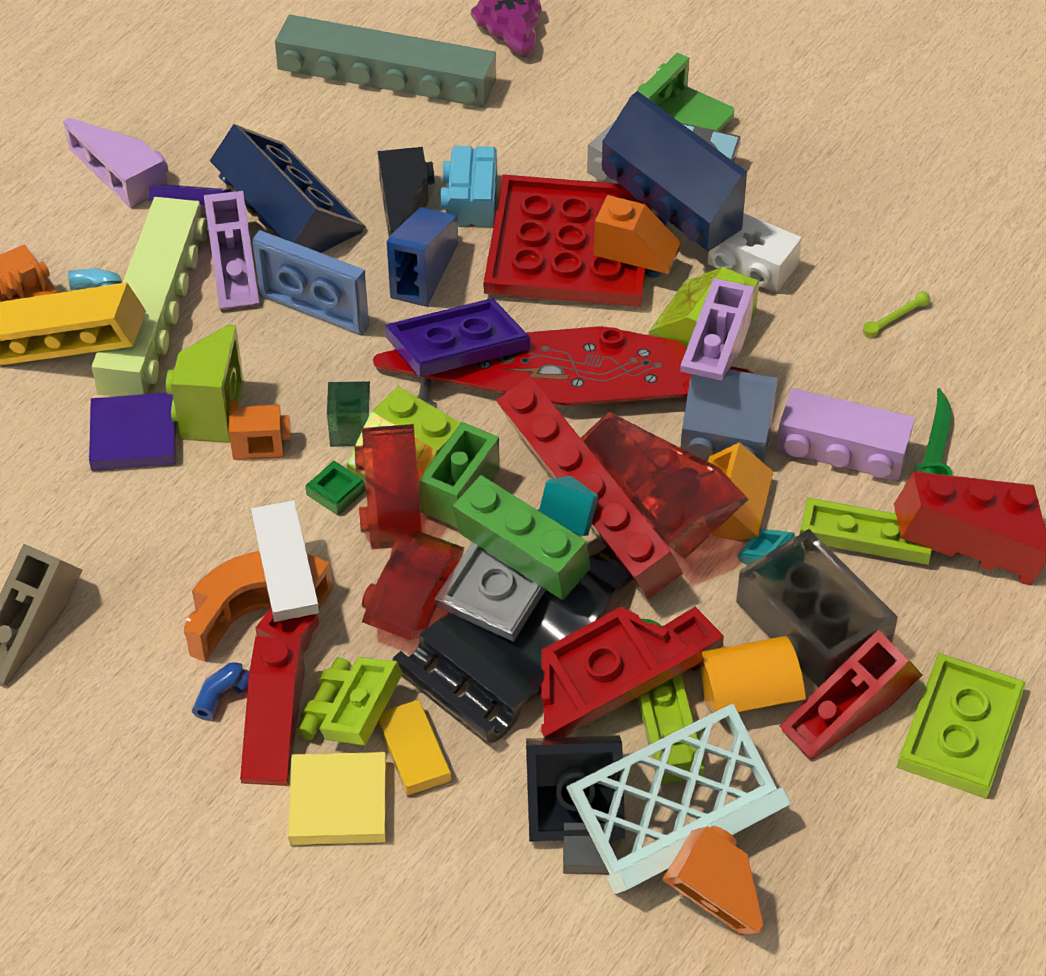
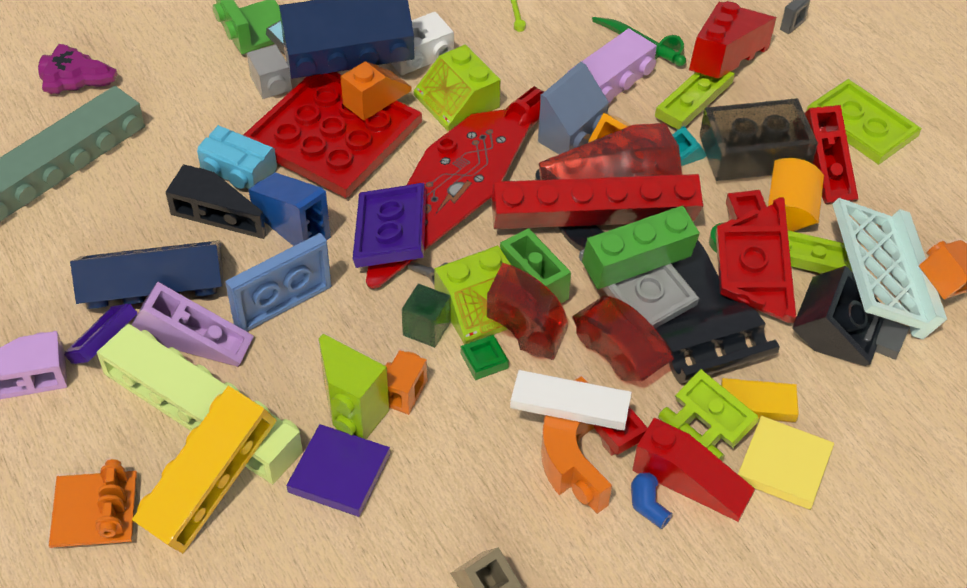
camera: 65 degrees left, 0 degrees up
(92, 278) = (139, 437): medium azure arm -> none
(569, 504) = (626, 207): teal slope -> none
(719, 330) = (524, 69): lavender slope -> none

